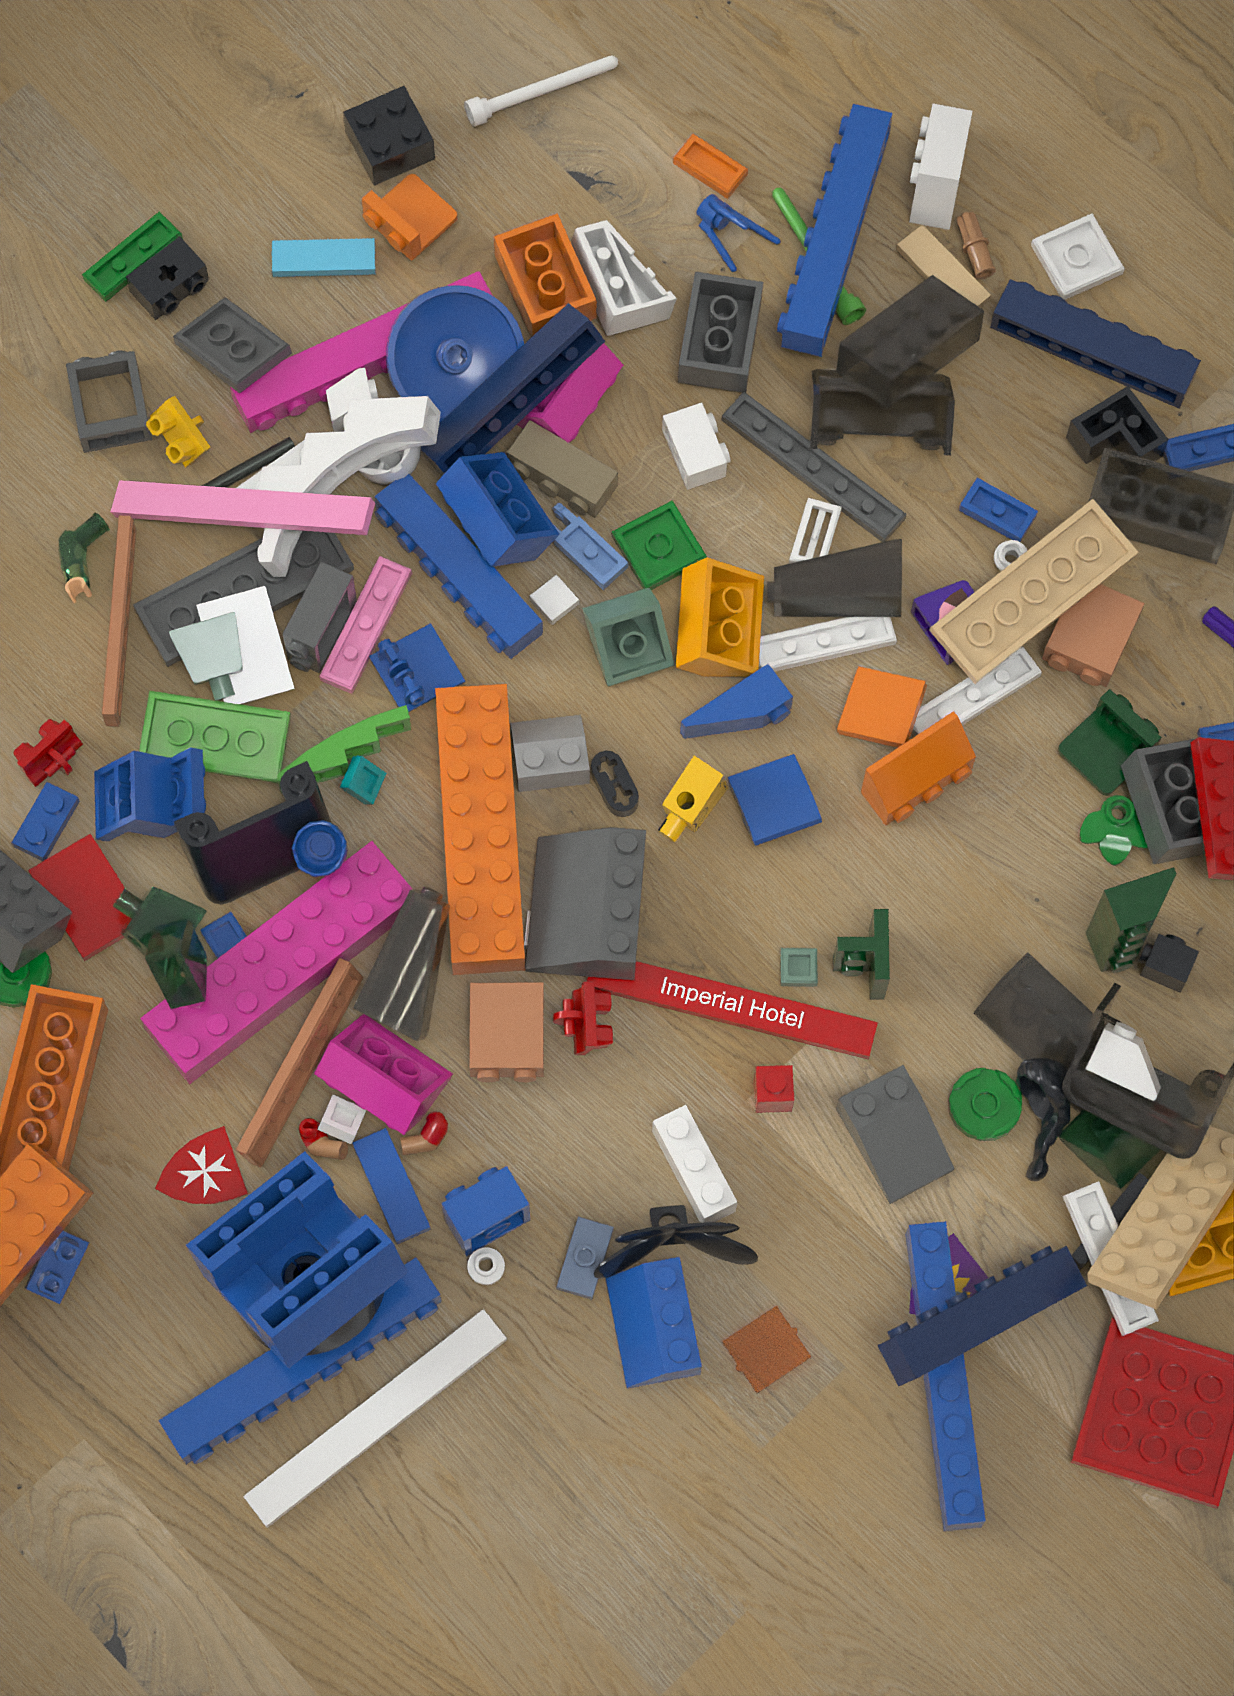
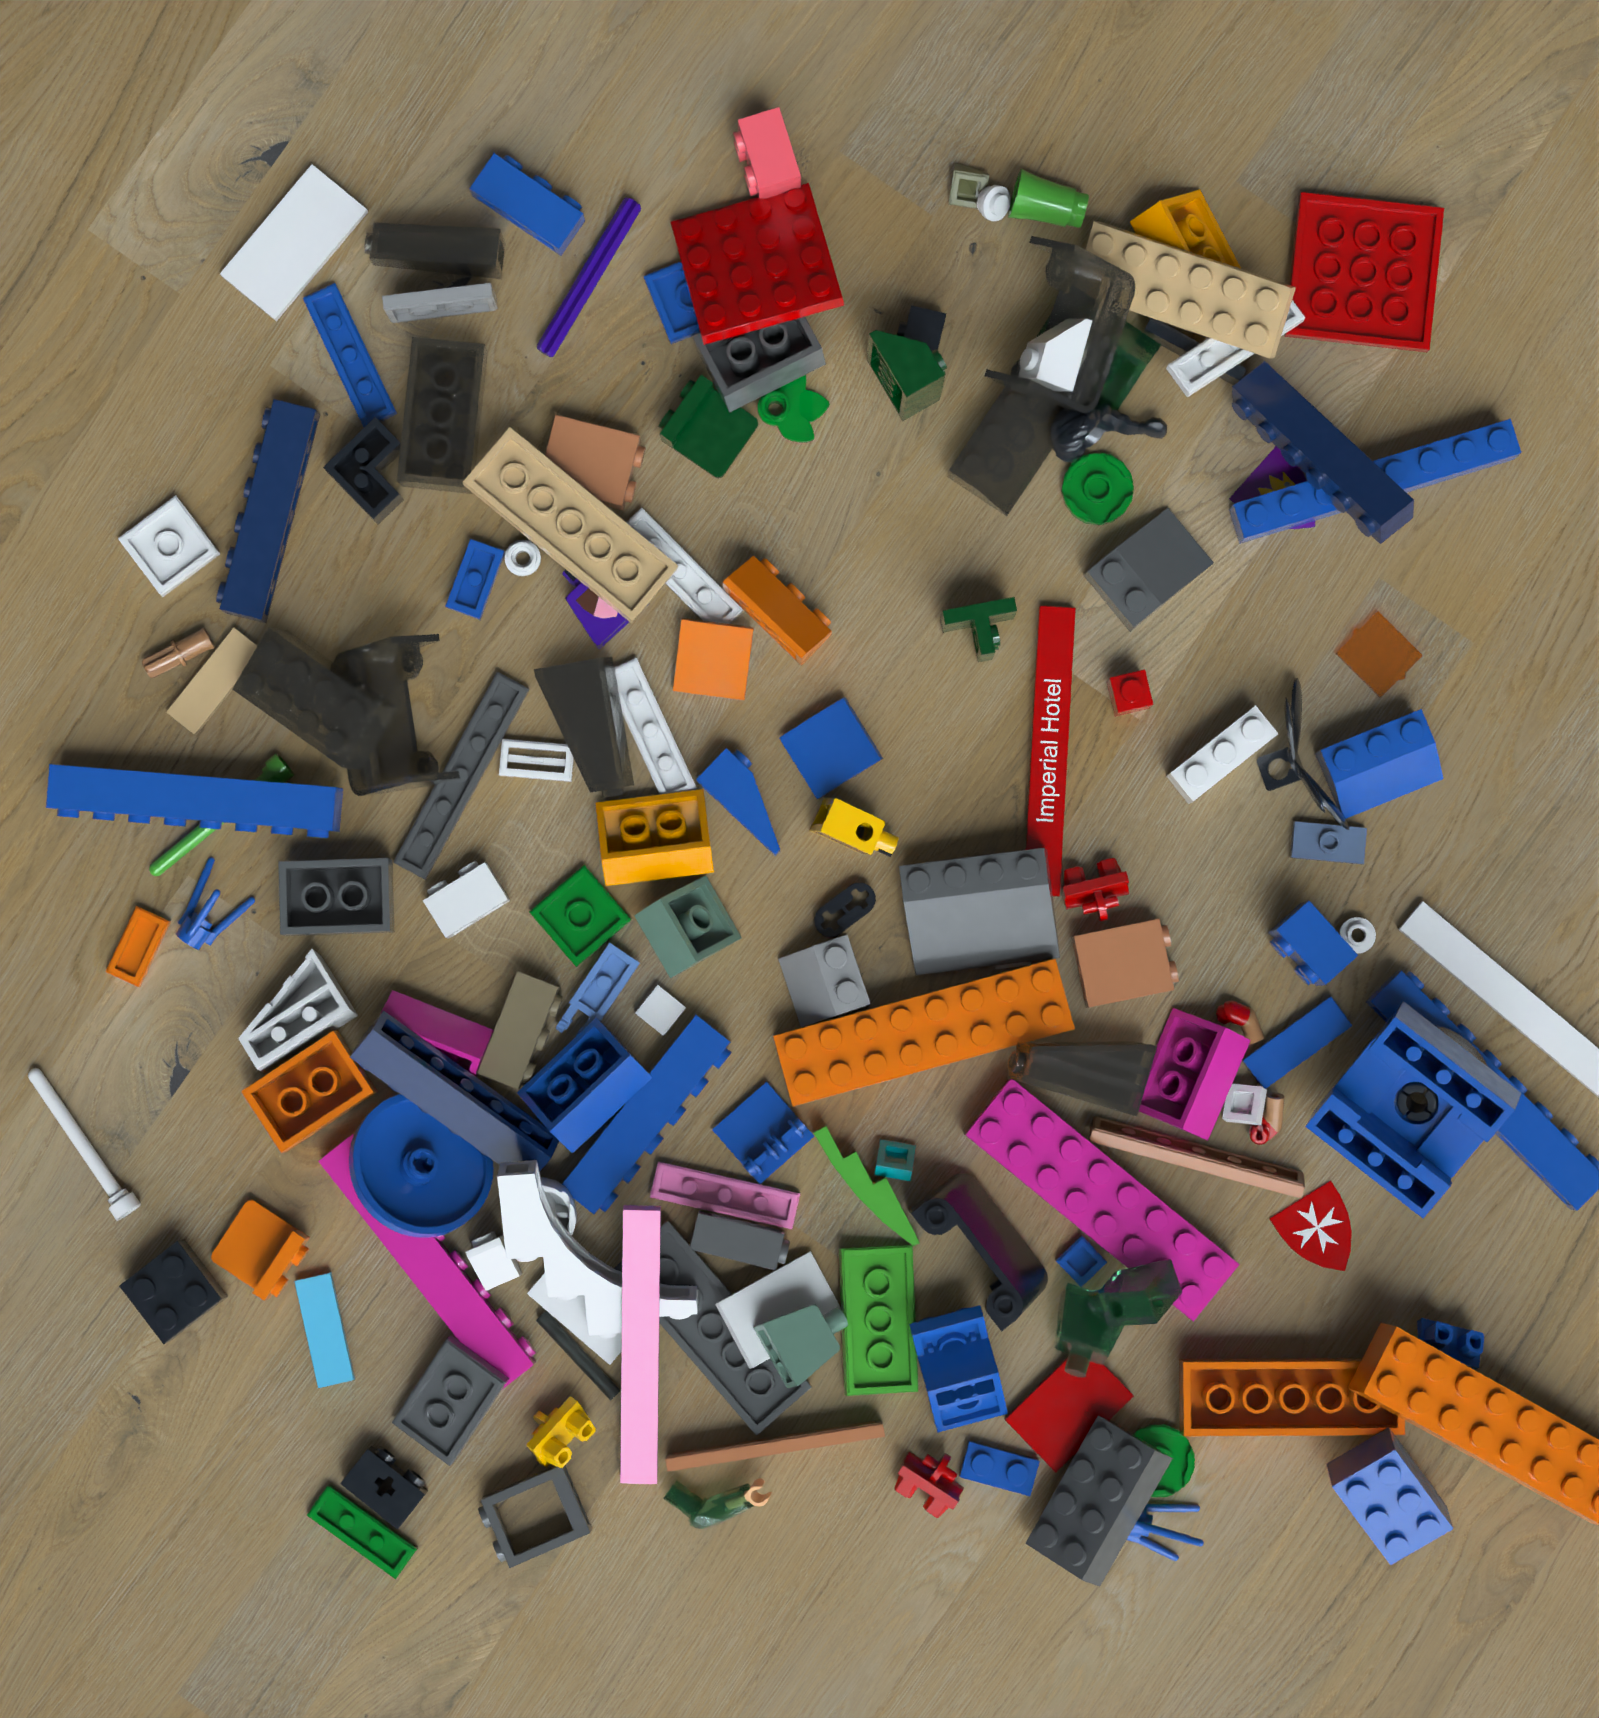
camera: 100 degrees left, 15 degrees up
(319, 848) = (990, 1182): blue hair -> none
(798, 967) = (996, 693): sand green tile -> none
(940, 165) = (94, 705): white wedge -> none

